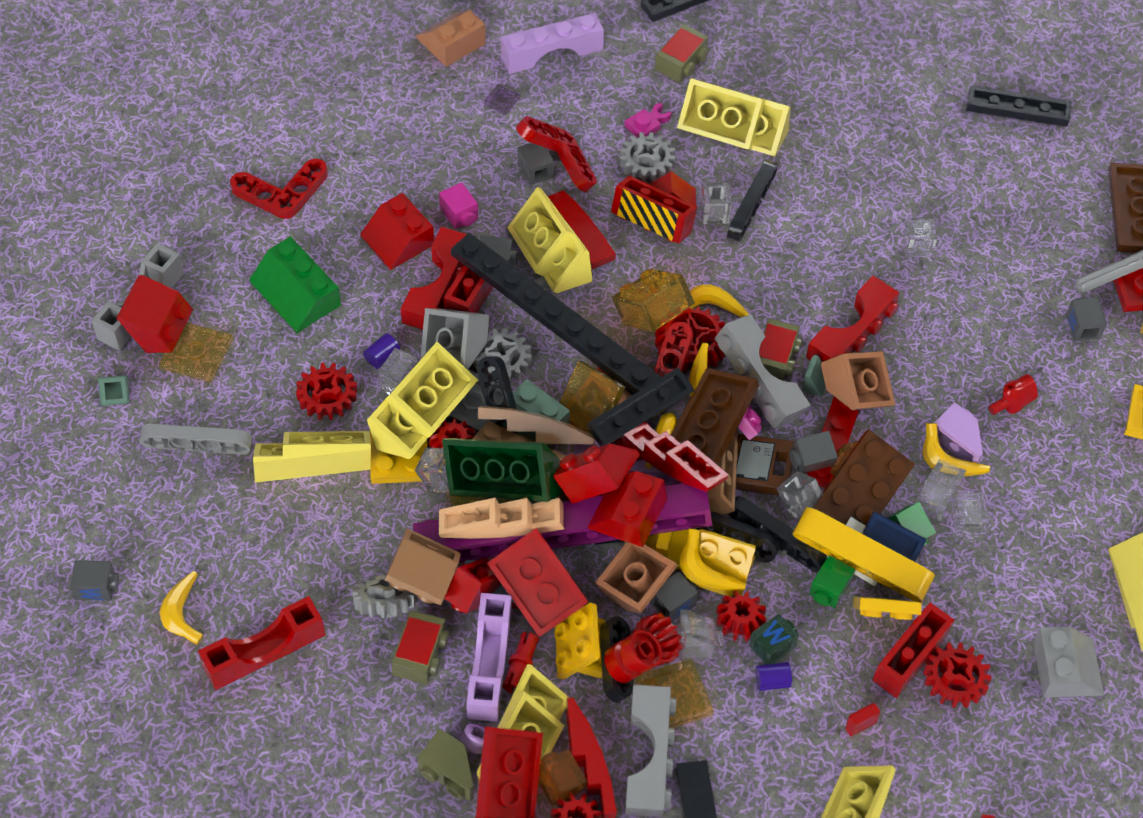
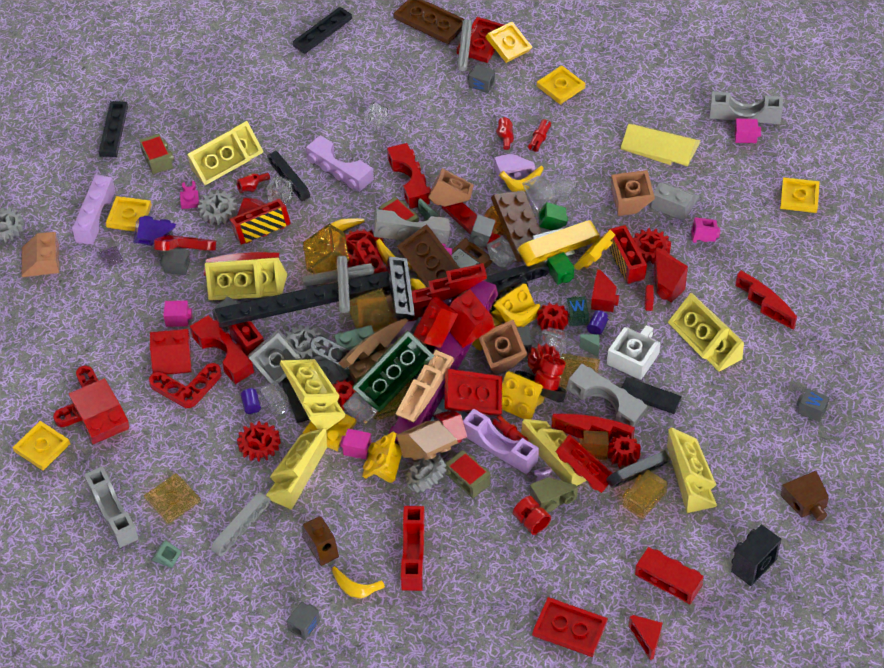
camera: 55 degrees left, 5 degrees down
(154, 315) = (137, 501): red slope -> none
(189, 186) = (41, 445): none -> yellow plate
(217, 529) = (316, 535): none -> reddish brown torso
(264, 210) = (99, 411): none -> red slope
(295, 285) = (167, 422): green slope -> none
(354, 277) = (186, 391): none -> red beam
(378, 541) = (383, 458): none -> yellow bracket
(387, 496) = (356, 443): none -> dark pink brick
(397, 760) = (532, 515): none -> red wheel
(557, 110) = (149, 229): none -> dark purple slope
(573, 79) = (126, 212): none -> yellow plate
(600, 342) = (343, 286): none -> light grey axle
(630, 334) = (331, 276): none -> light grey axle
(712, 168) = (251, 182): none -> red piece
(731, 685) = (590, 343): none -> sand green slope
(767, 747) = (633, 352): none -> white hinge
(810, 265) = (354, 174): none -> lavender arch
(826, 657) = (604, 293): none -> red slope
(894, 536) = (557, 223): dark blue tile -> none
(909, 725) = (669, 275): none -> red slope
(1027, 598) = (631, 192): none -> nougat slope
(1039, 732) = (704, 230): none -> dark pink brick
(1045, 438) = (539, 135): none -> red pin

